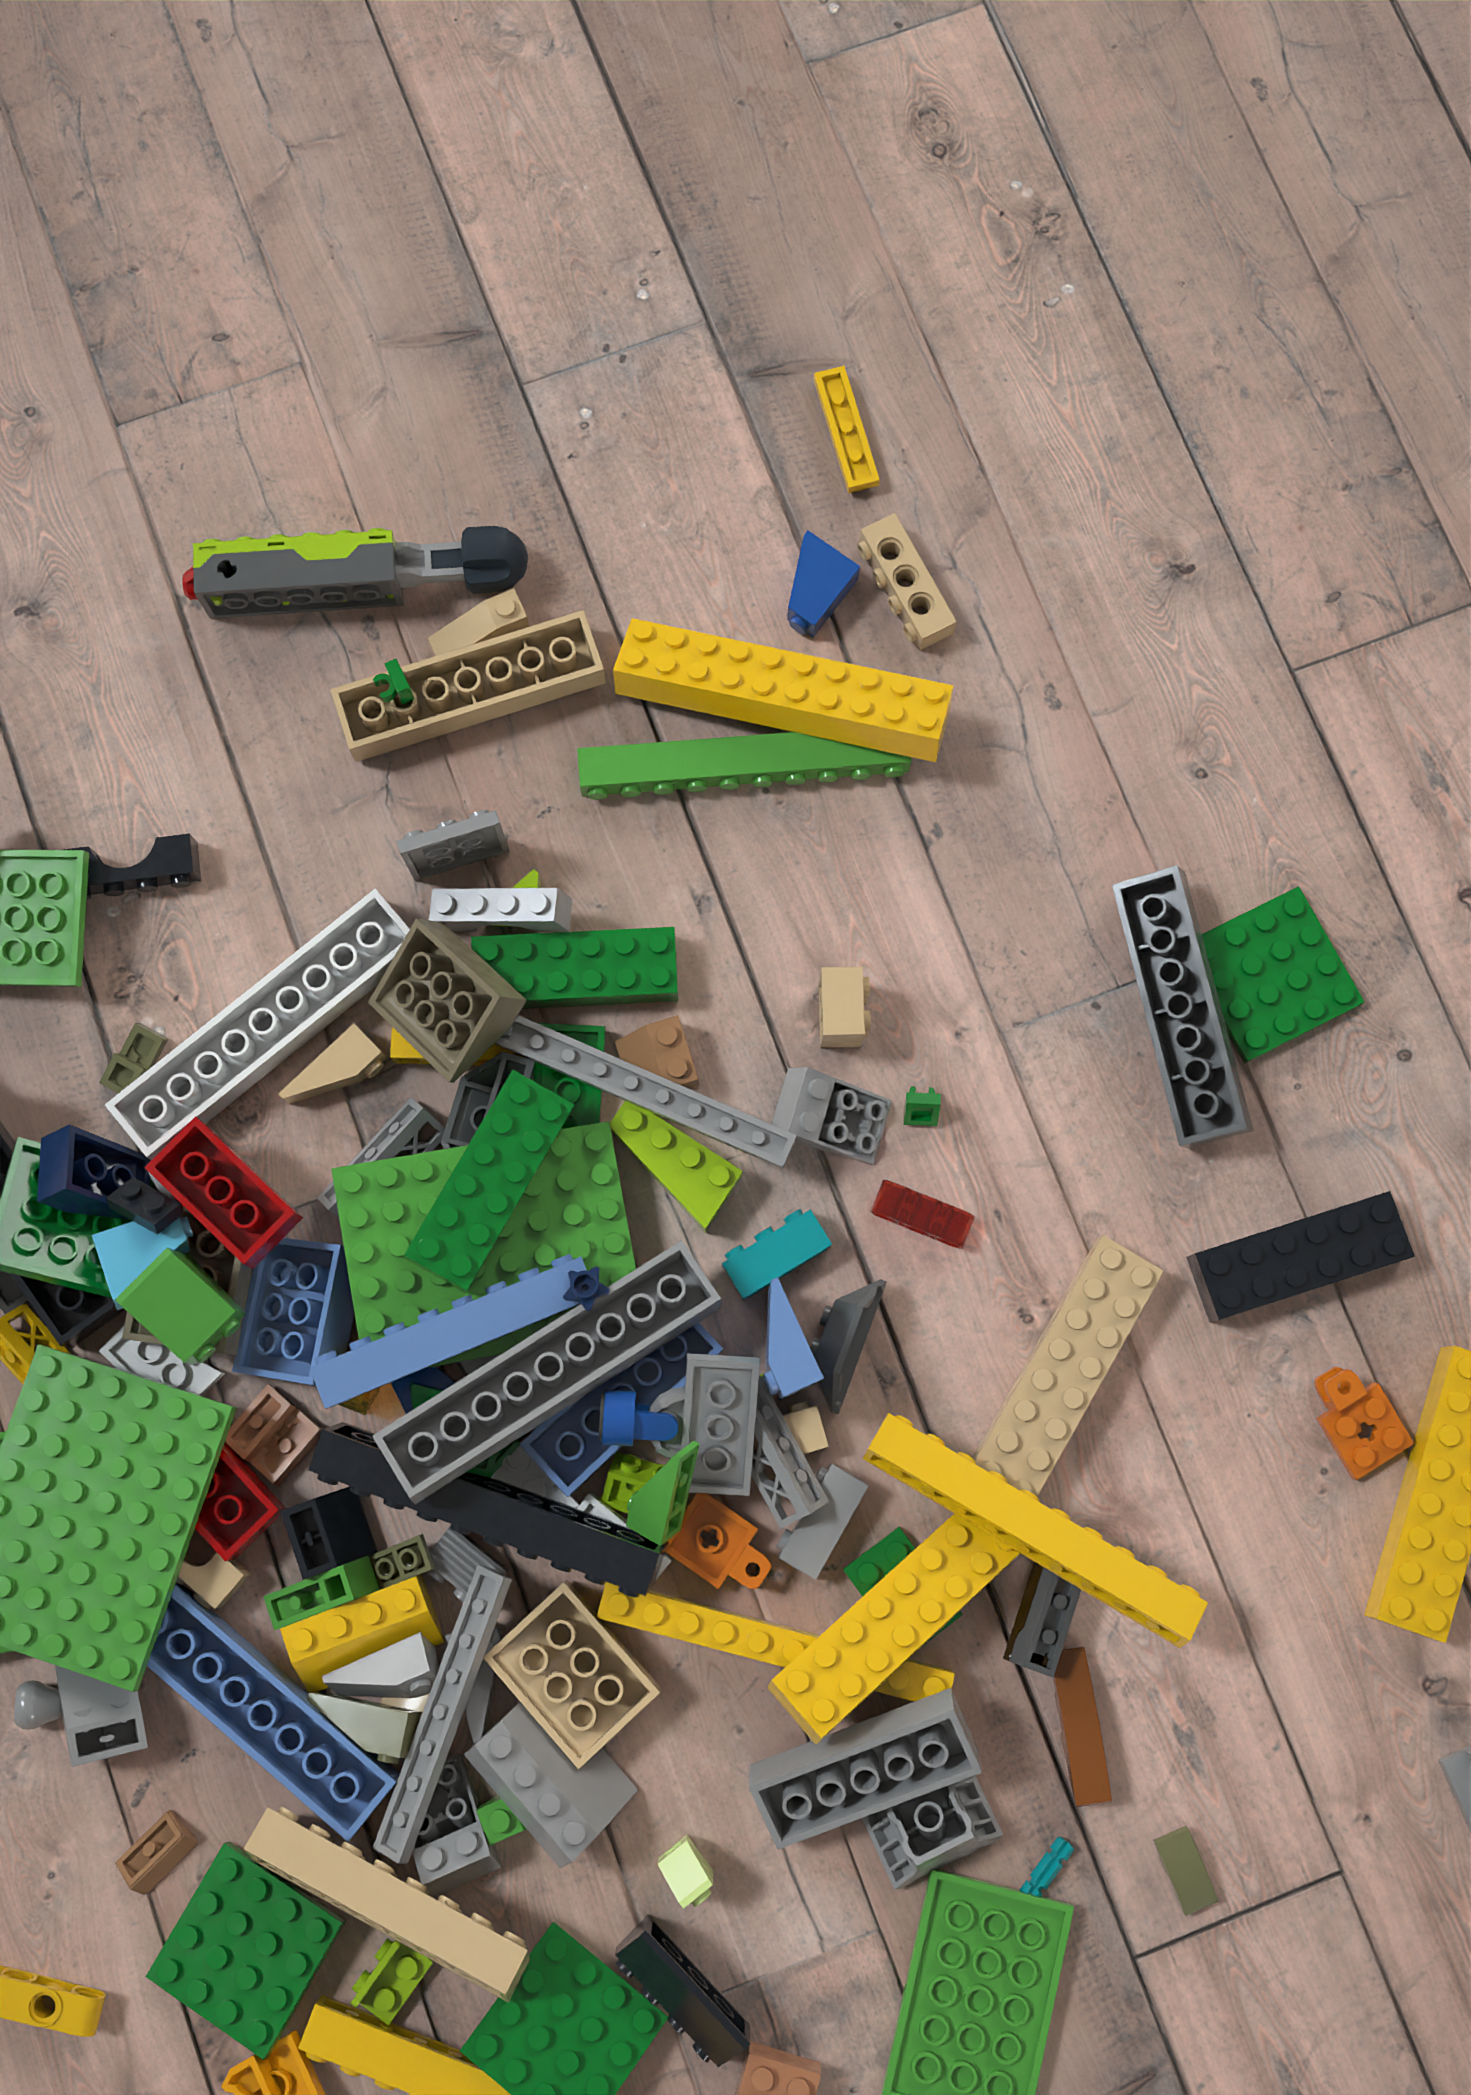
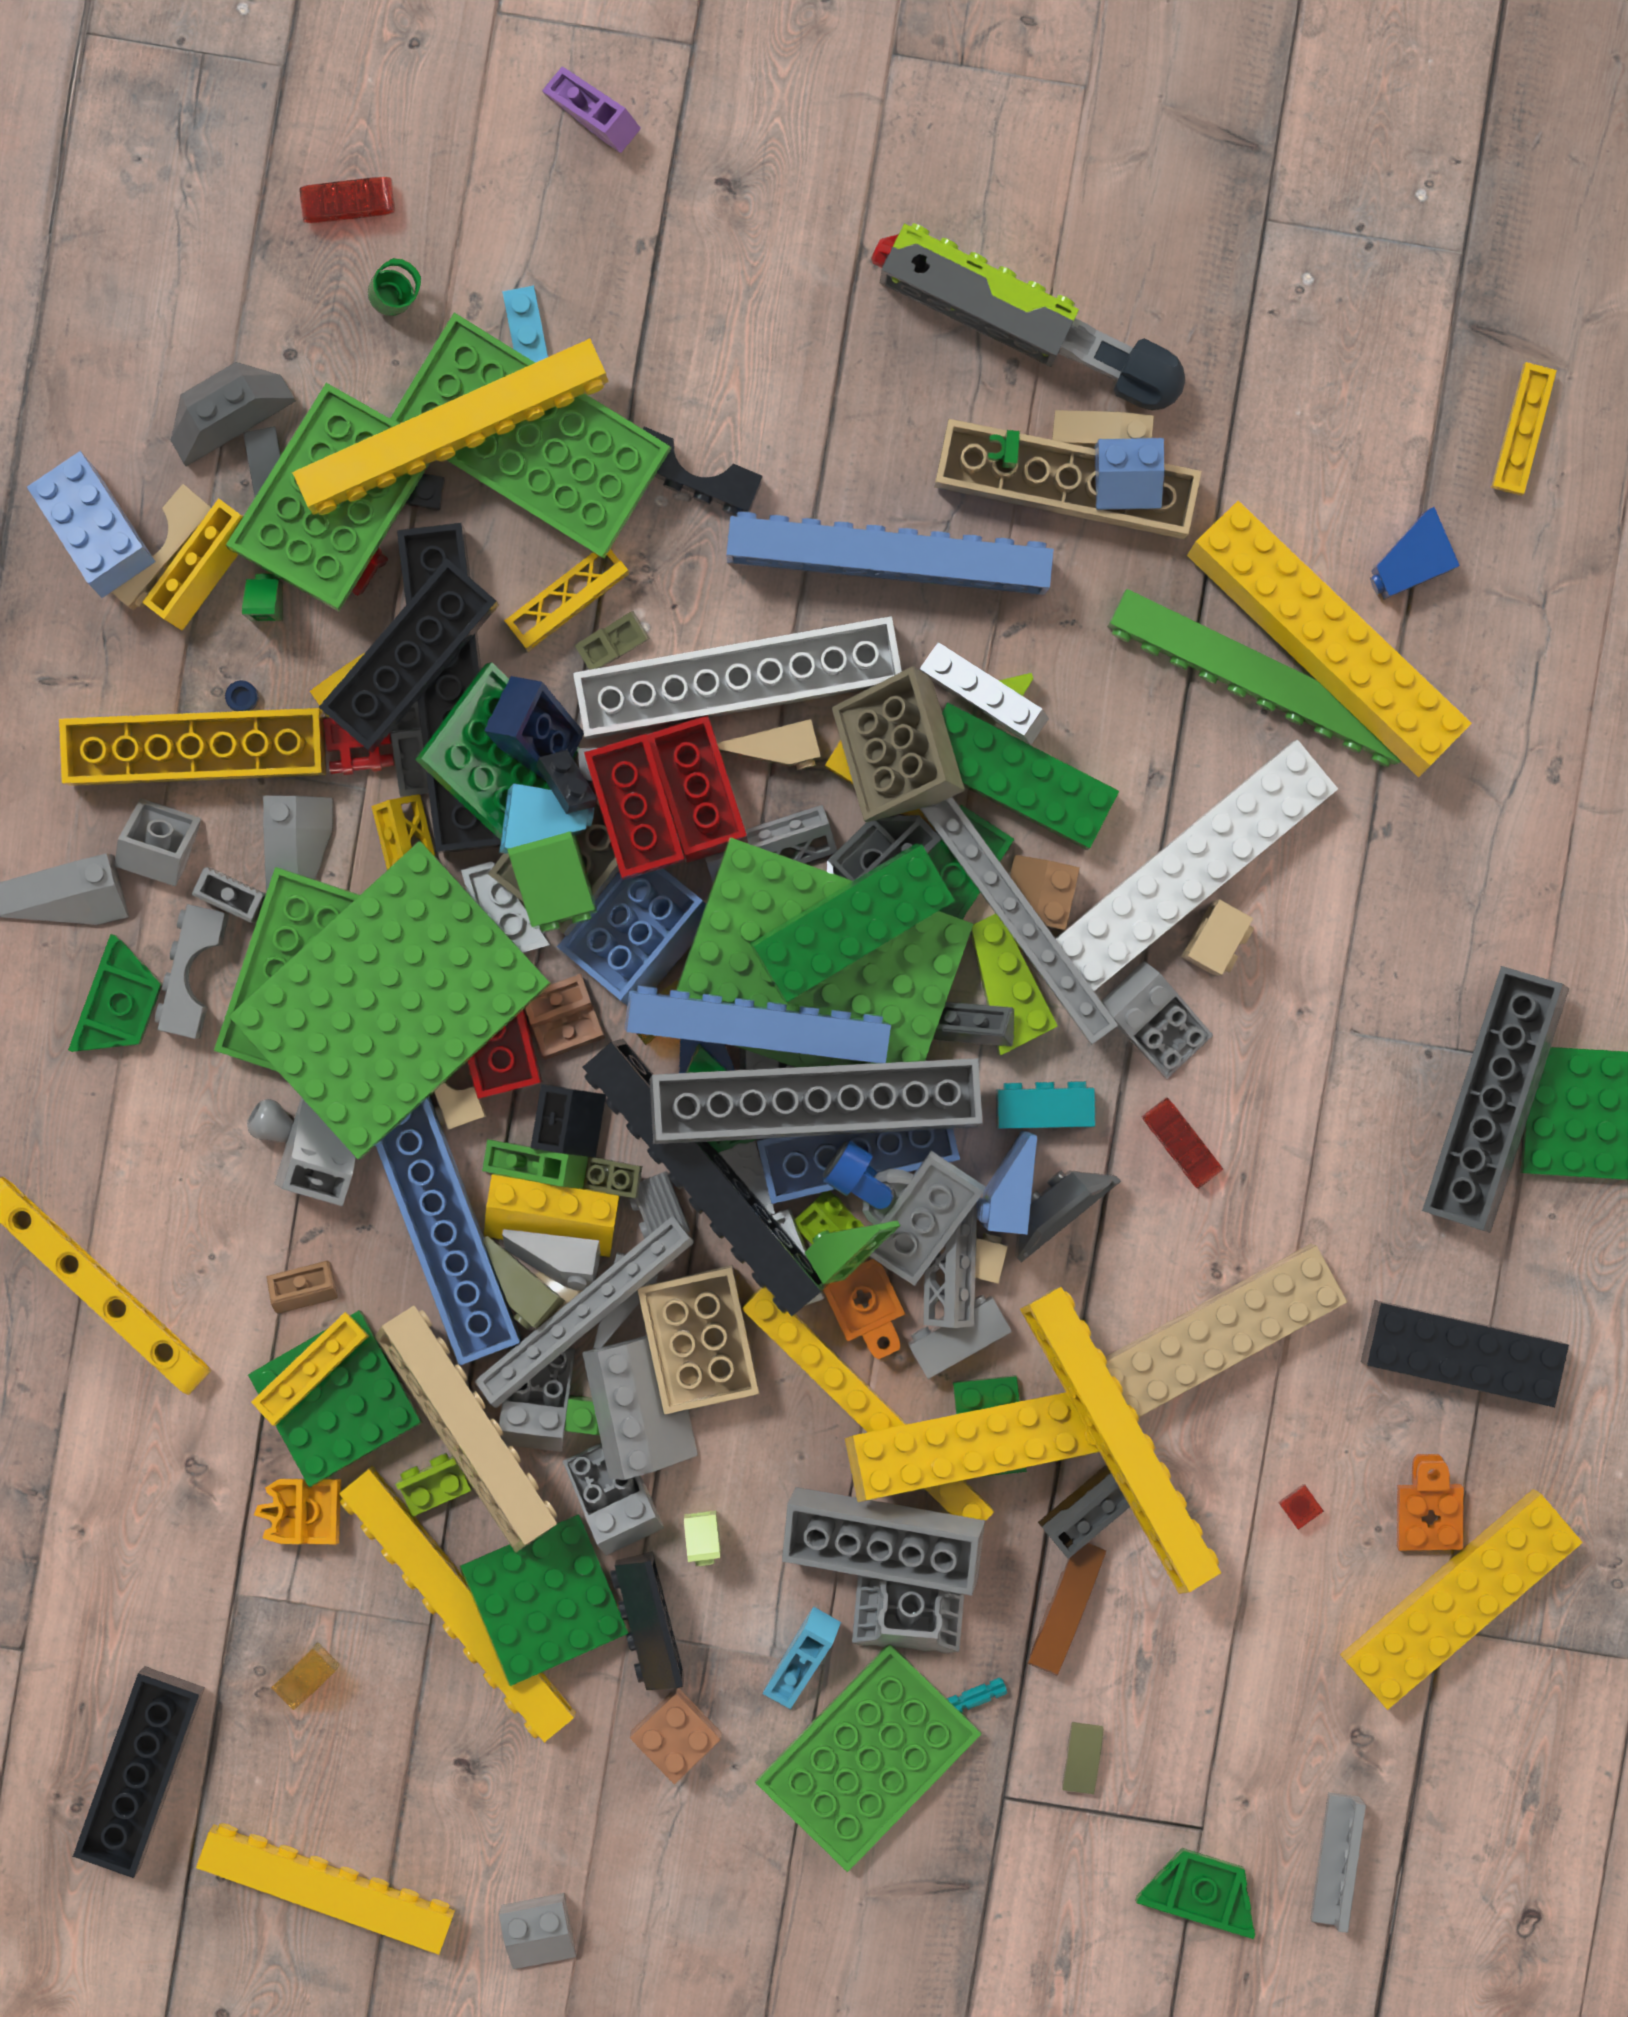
camera: 30 degrees right, 10 degrees up
(76, 1047) = (568, 608): none -> yellow fence
(200, 1935) = (309, 1369): none -> yellow plate
(279, 1145) = (697, 788): none -> red brick
(339, 839) = (889, 554): none -> medium blue brick
(453, 844) = (978, 616): light grey plate -> none
(518, 642) = (1129, 473): none -> medium blue slope
(578, 1281) = (881, 1044): dark blue plate -> none
(584, 1895) = (614, 1508): none -> light grey slope
(665, 1214) = (976, 1024): none -> dark grey slope
(783, 954) = (1195, 864): none -> white brick
(854, 1936) = (802, 1657): none -> medium azure slope
(891, 537) = (1503, 550): tan brick -> none
(921, 1108) = (1233, 1056): green tile -> none
(1240, 1493) = (1300, 1506): none -> clear red plate
(1382, 1937) = (1202, 1891): none -> green wing

